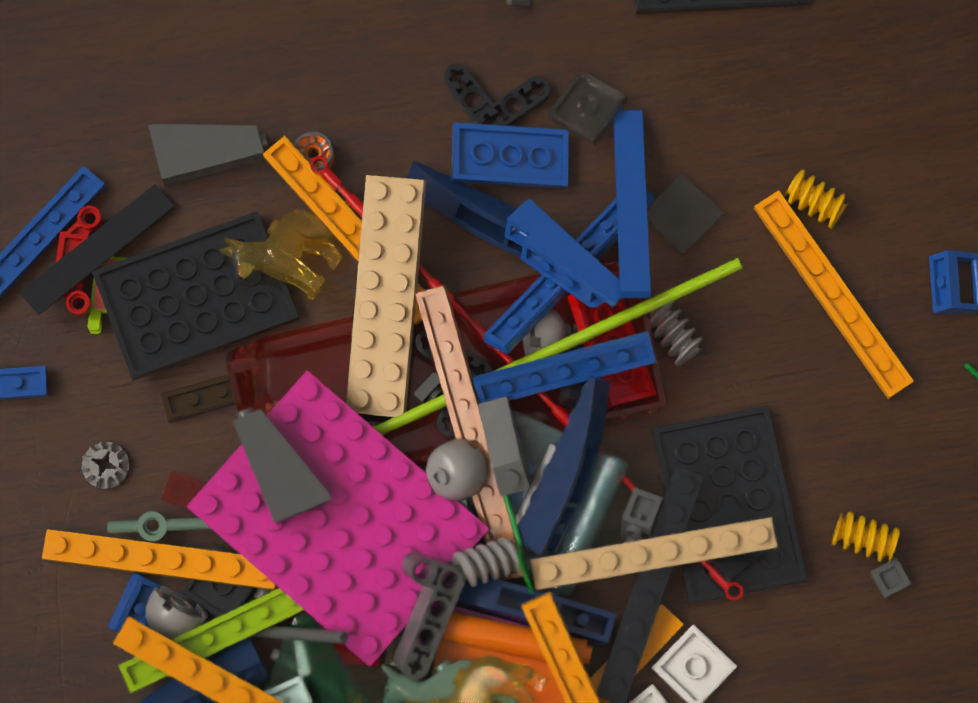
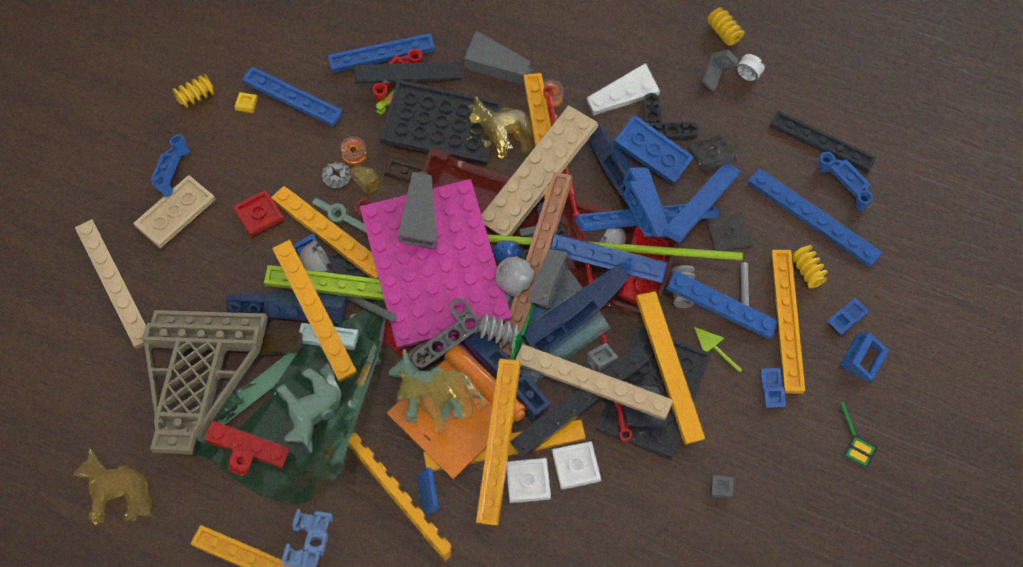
camera: 30 degrees right, 15 degrees down
(41, 592) = (258, 213): none -> red plate
(104, 403) = (353, 144): none -> orange wheel
(150, 446) = (365, 178): none -> clear yellow rock
(411, 82) = (623, 91): none -> white wing
(418, 435) = (506, 249): none -> blue head
(731, 463) = (670, 368): none -> light orange tile
(740, 331) = (721, 304): none -> blue plate
(750, 388) = (709, 340): none -> lime piece
(753, 285) = (744, 283): none -> light grey bar
(777, 119) = (815, 218): none -> blue plate
(790, 31) = (848, 177): none -> blue plate
(865, 536) = (721, 454): yellow piece -> none
(869, 401) = (772, 388): none -> blue slope
(904, 238) = (848, 316): none -> blue slope

